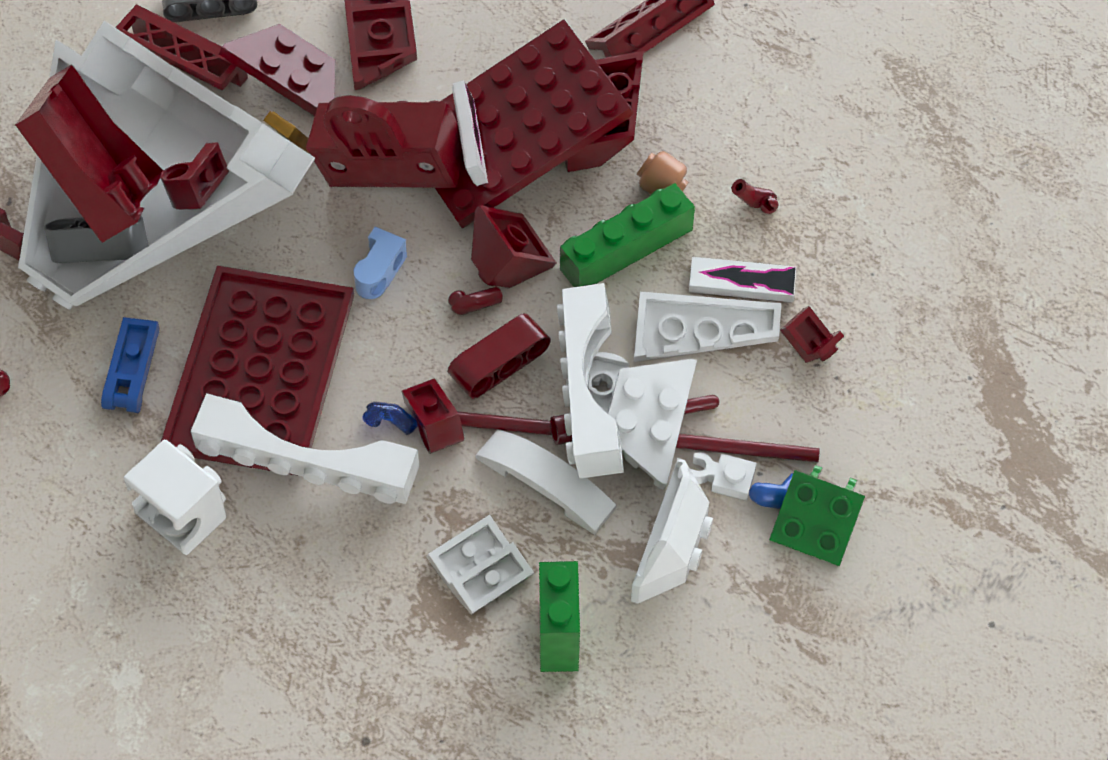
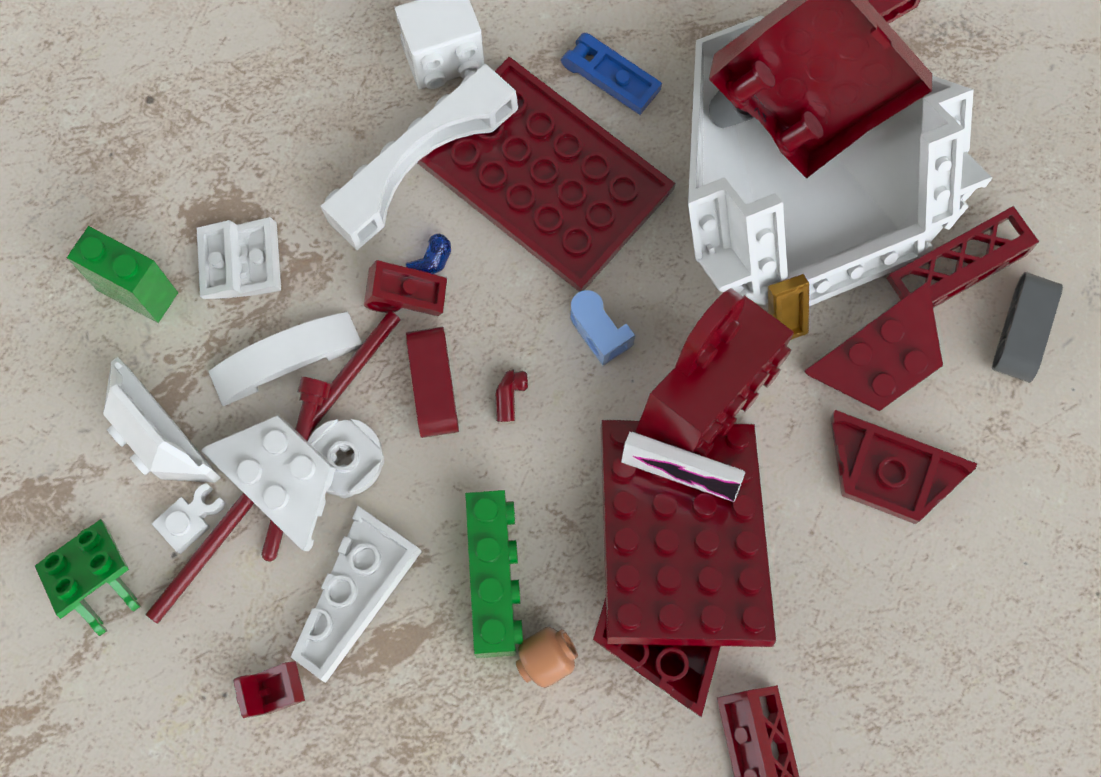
camera: 120 degrees right, 15 degrees up
(194, 182) = (784, 180): dark red plate -> none
(507, 248) = (548, 455): dark red slope -> none
(594, 433) = (263, 392): white arch -> none
(742, 279) = (383, 668): tile -> none
(755, 196) = (475, 739): dark red arm -> none
(769, 494) = (133, 552): blue arm -> none

